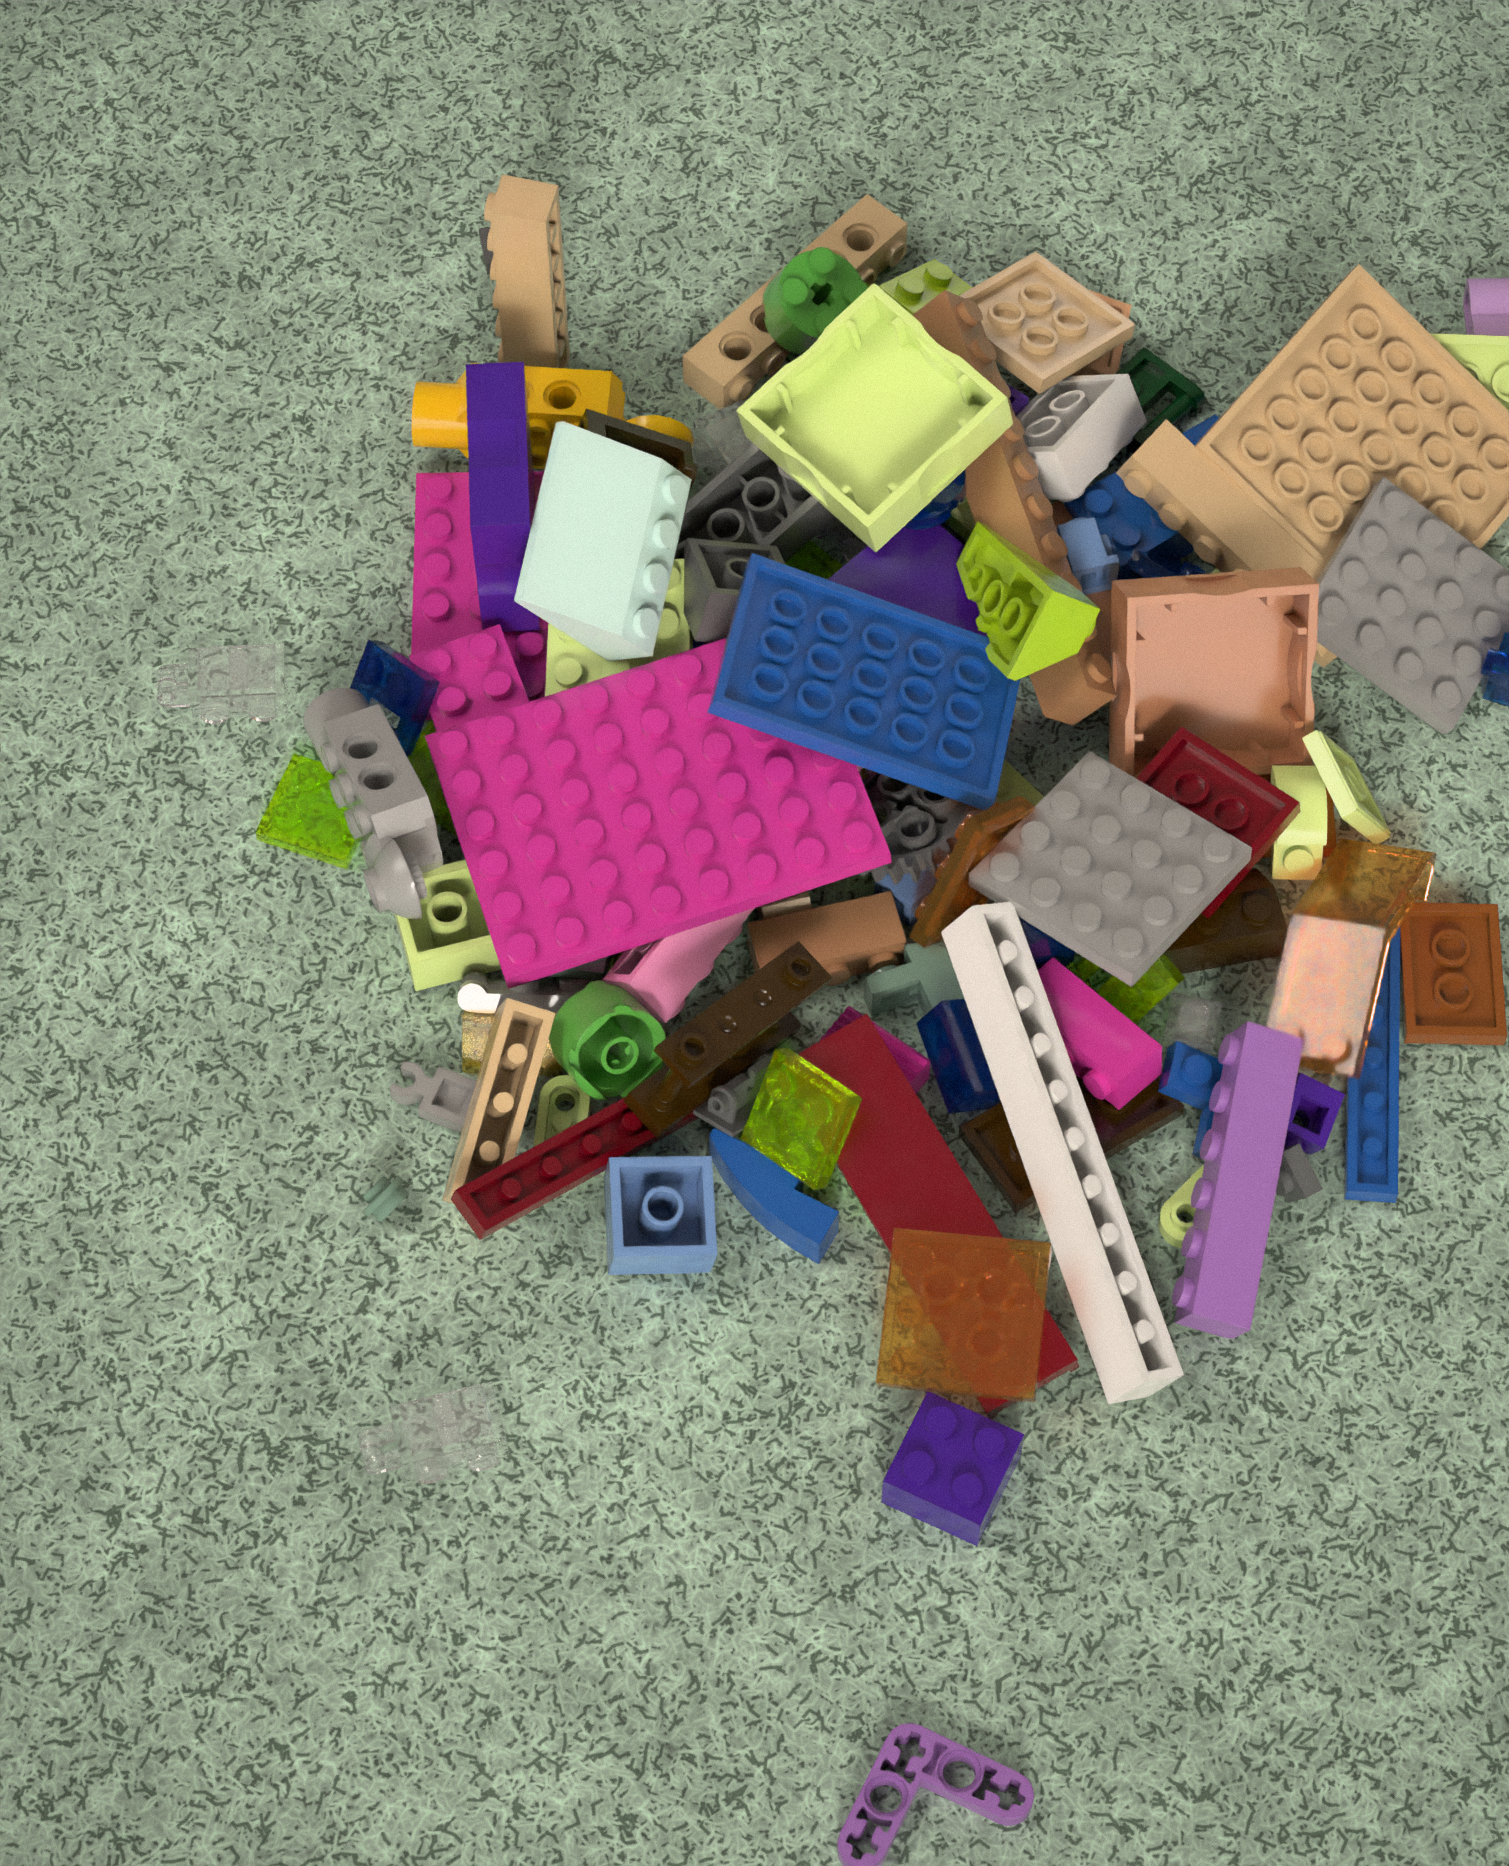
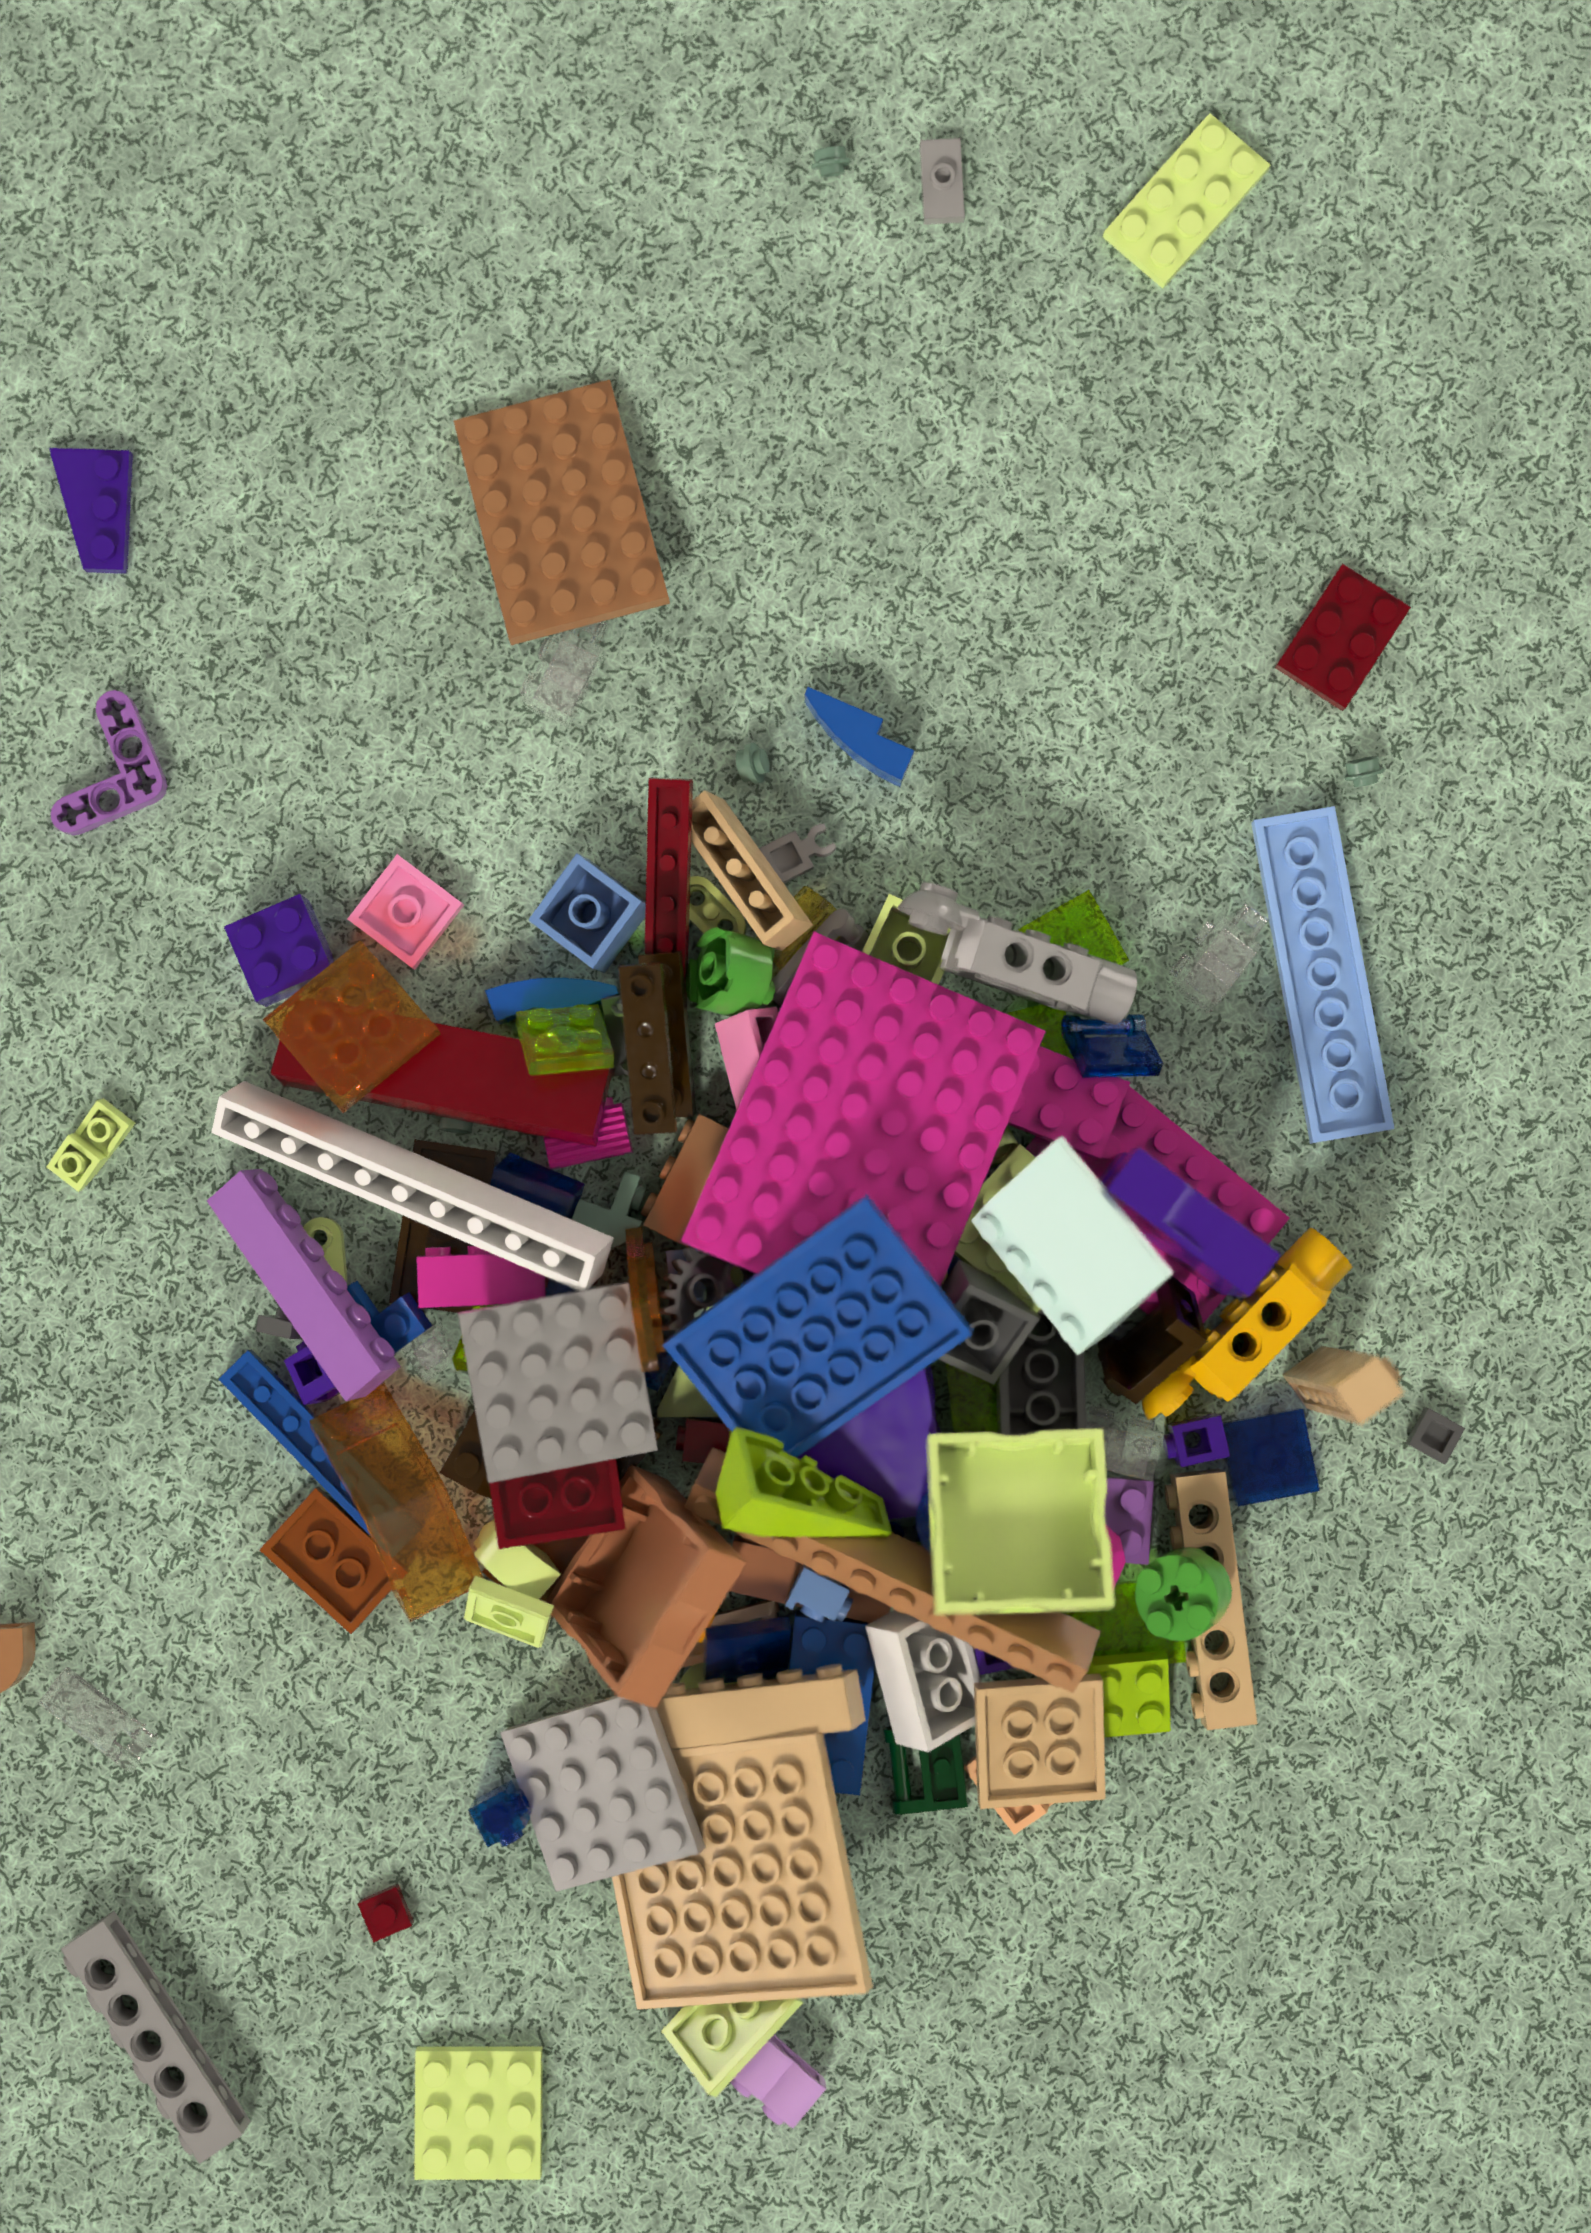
camera: 135 degrees right, 25 degrees up
(169, 601) = (1322, 975): none -> light blue plate
(276, 1122) = (859, 736): none -> blue slope
(277, 1567) = (561, 512): none -> medium nougat plate
(638, 346) = (1270, 1457): none -> clear blue plate
(674, 396) = (1211, 1443): none -> dark purple brick
(810, 1393) = (405, 911): none -> bright pink plate
(1041, 753) = (700, 1436): none -> dark red brick
(1304, 1501) = (91, 1145): none -> yellowish green slope

